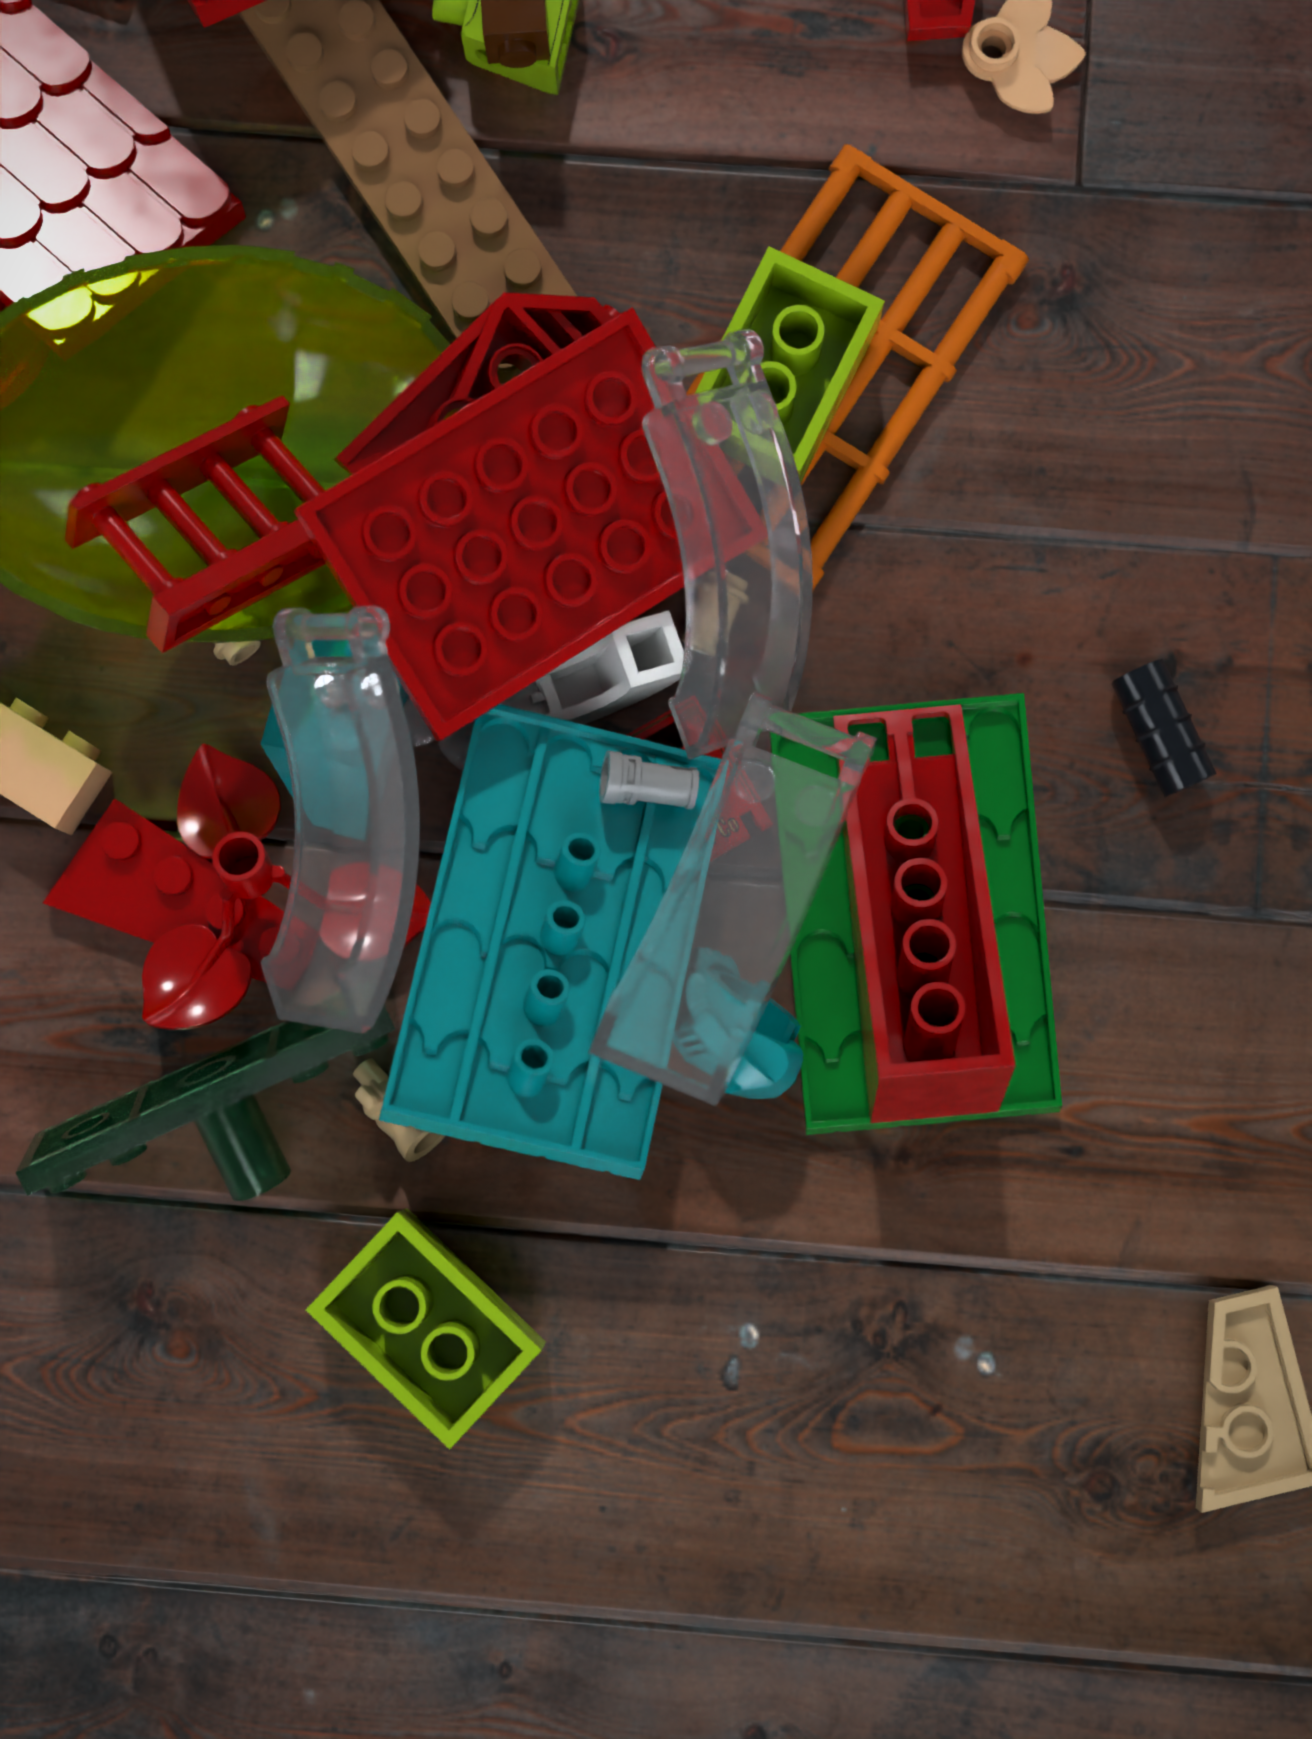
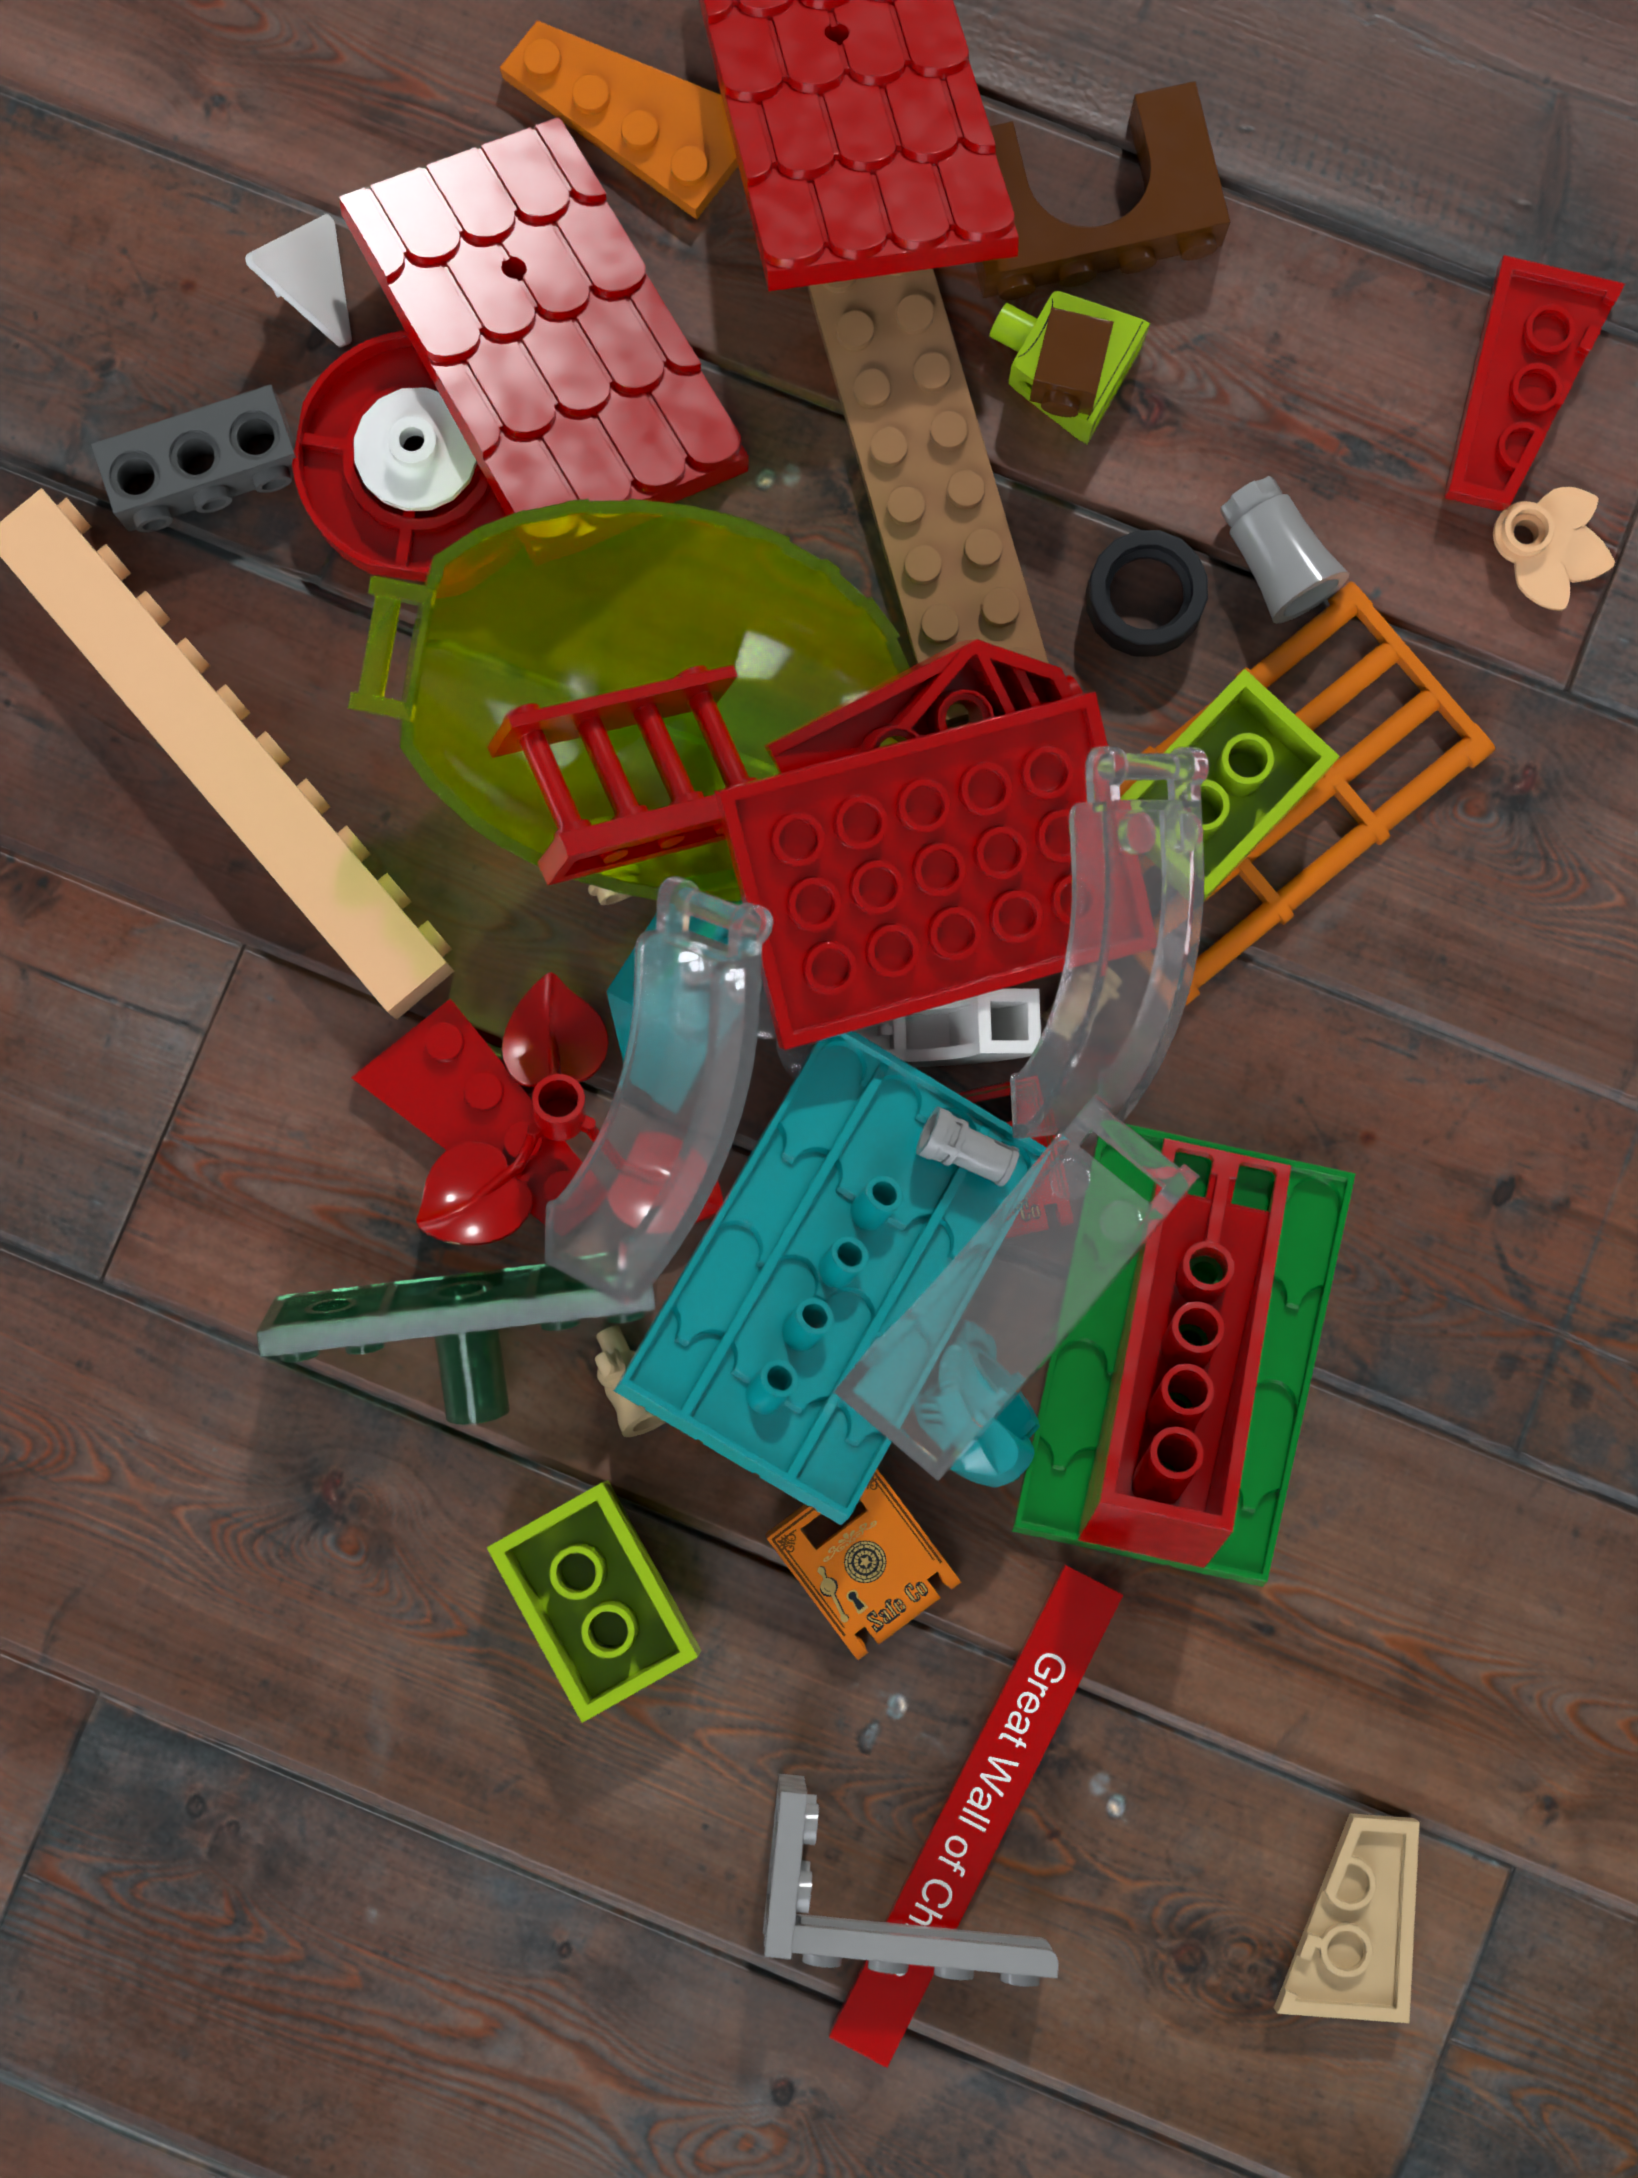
camera: 15 degrees right, 0 degrees up
(659, 167) = (1165, 549): none -> black tyre
(682, 1213) = (868, 1570): none -> orange container
(770, 133) = (1281, 550): none -> light grey plant
(807, 1568) = (886, 1945): none -> light grey bracket
(855, 1418) = (981, 1803): none -> red tile
(1163, 727) = (1481, 1248): black axle -> none

